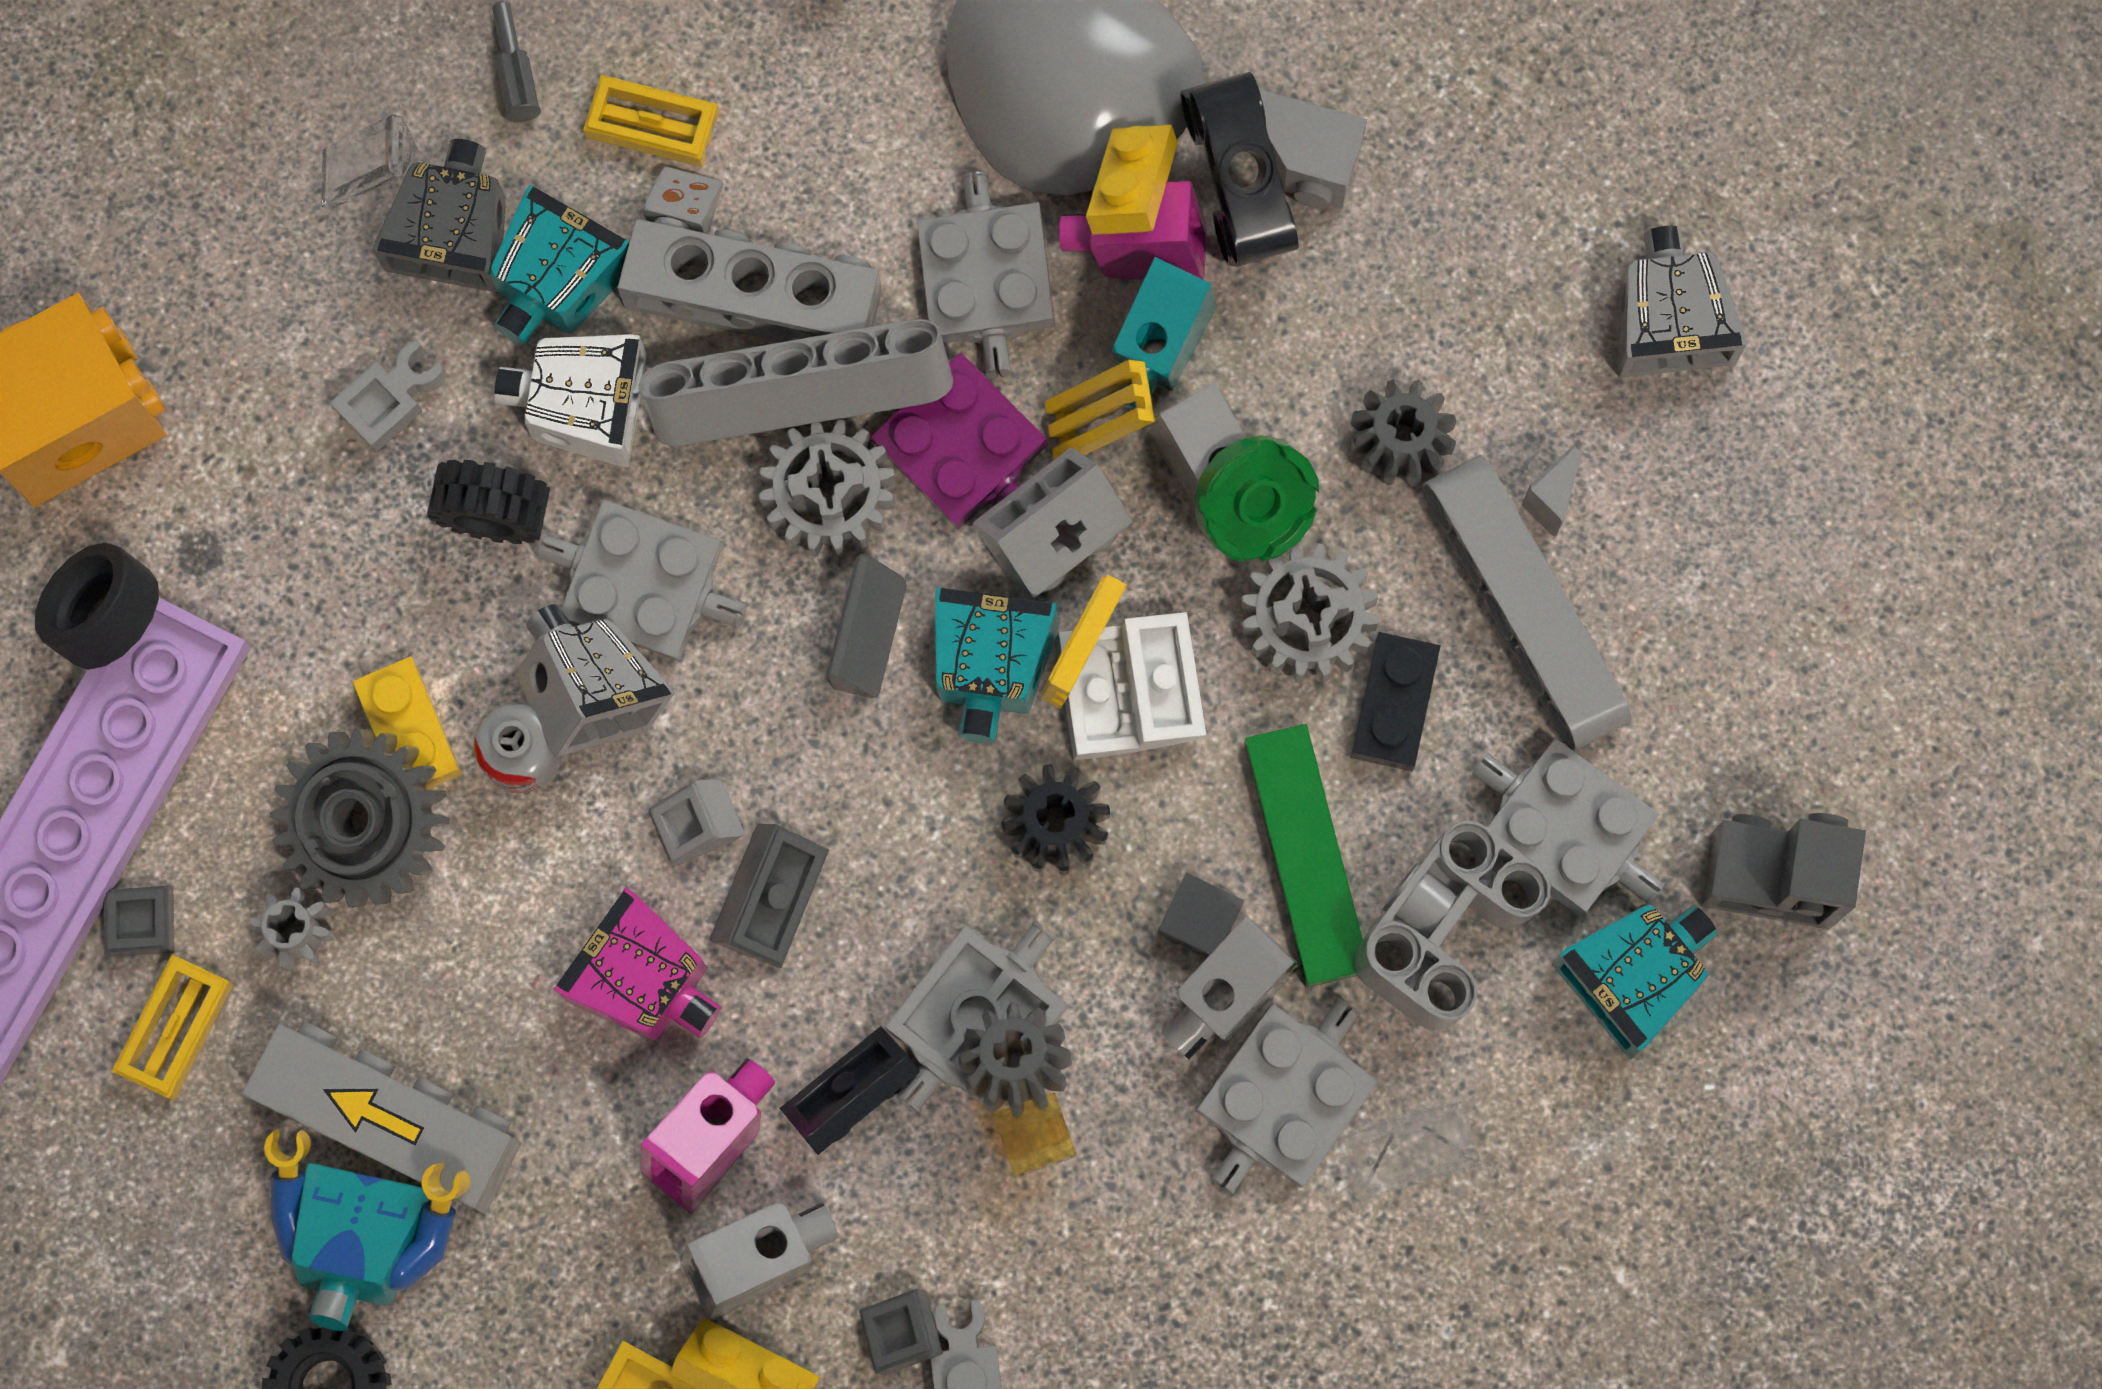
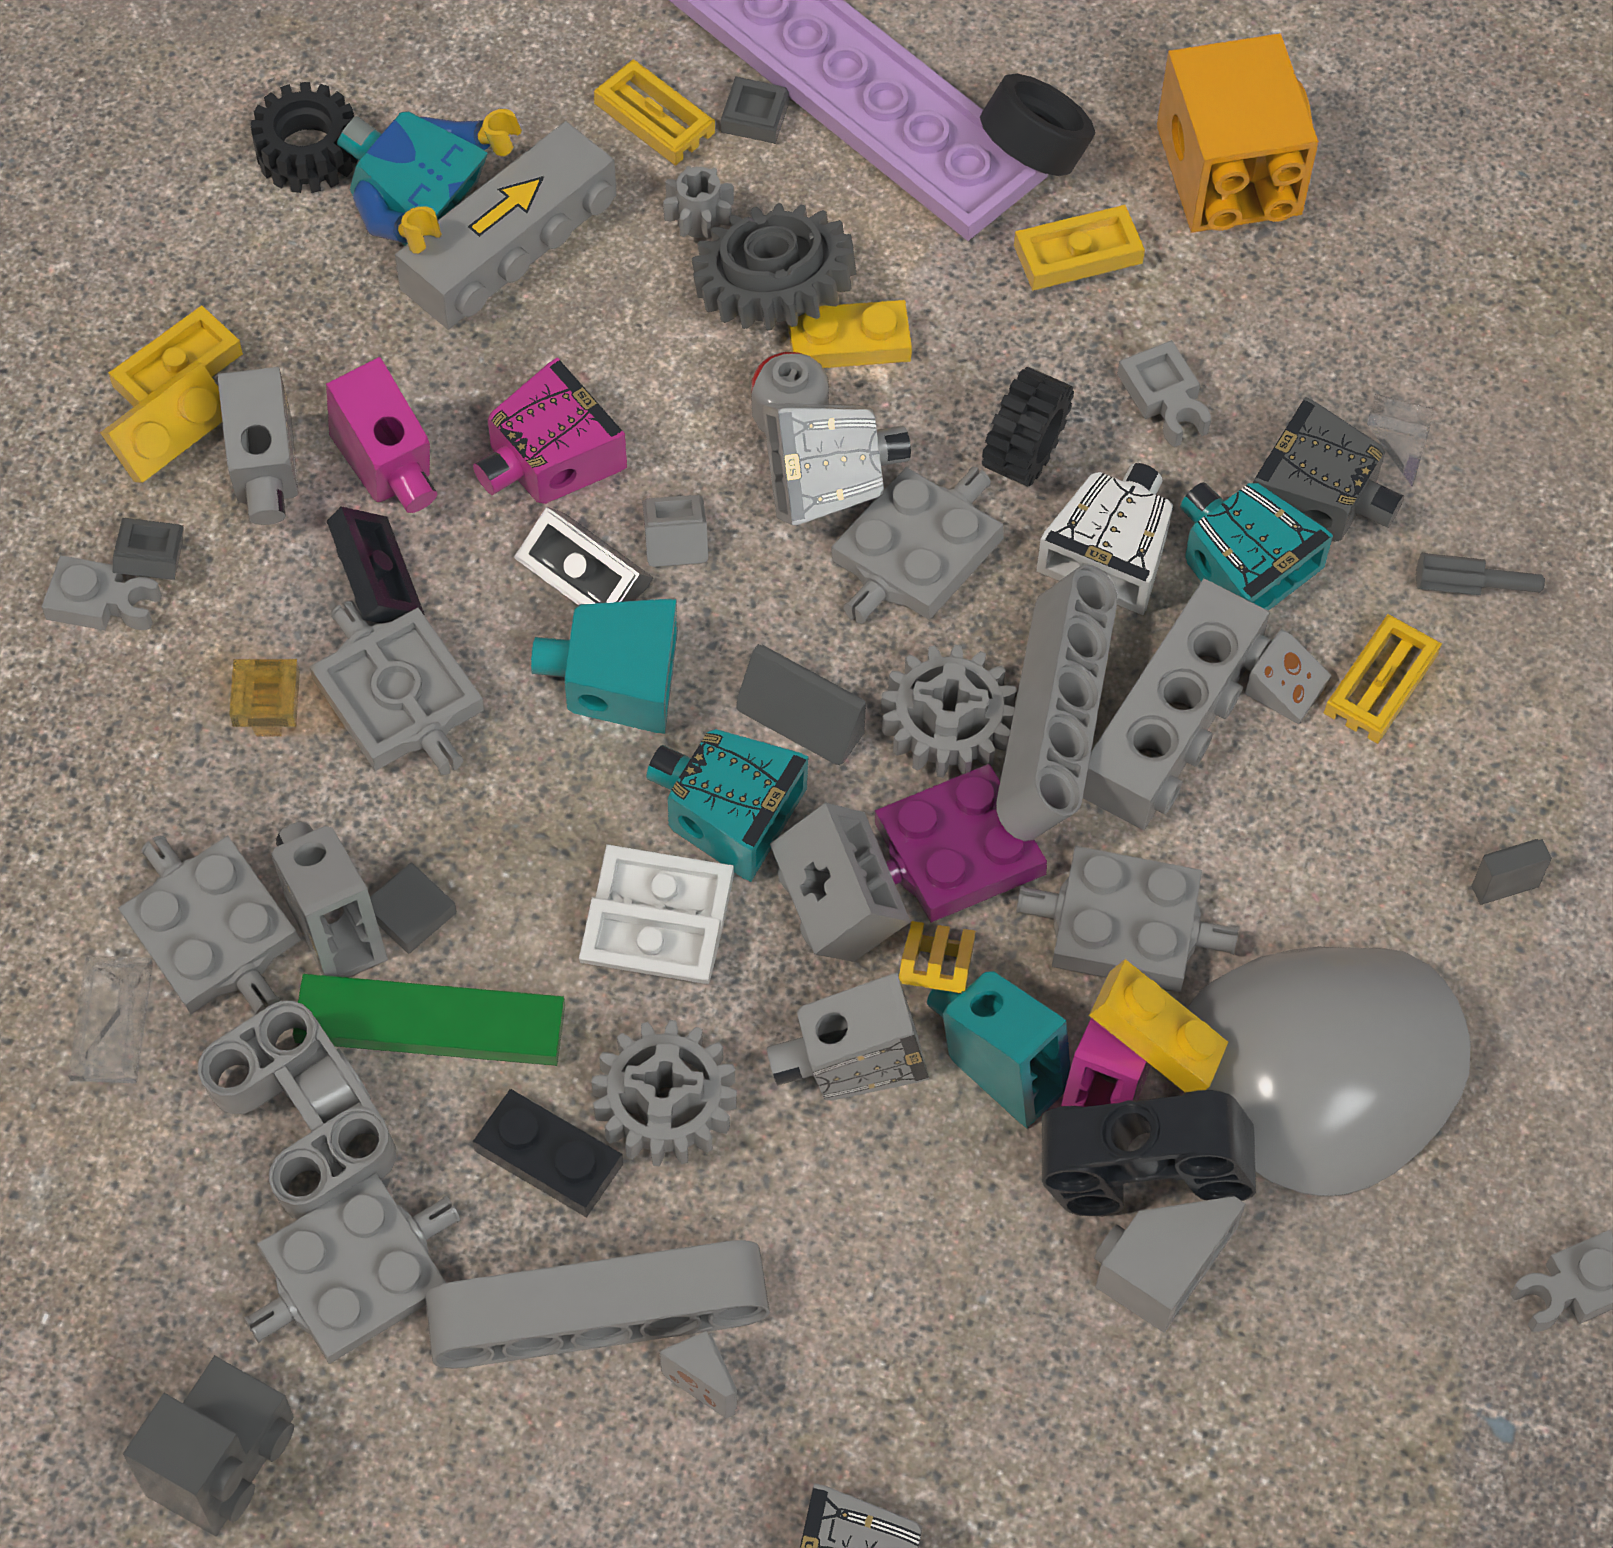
camera: 105 degrees right, 15 degrees down
(232, 529) = (1079, 247): none -> yellow plate
(878, 814) = (616, 661): none -> teal torso
(1035, 810) = (526, 799): black gear -> none
(1037, 1068) = (334, 657): dark grey gear -> none
(1082, 641) = (708, 867): yellow tile -> none
(1256, 498) = (786, 1053): green tile -> none
(1427, 436) = (825, 1266): dark grey gear -> none
(1638, 972) = (178, 1272): teal torso -> none

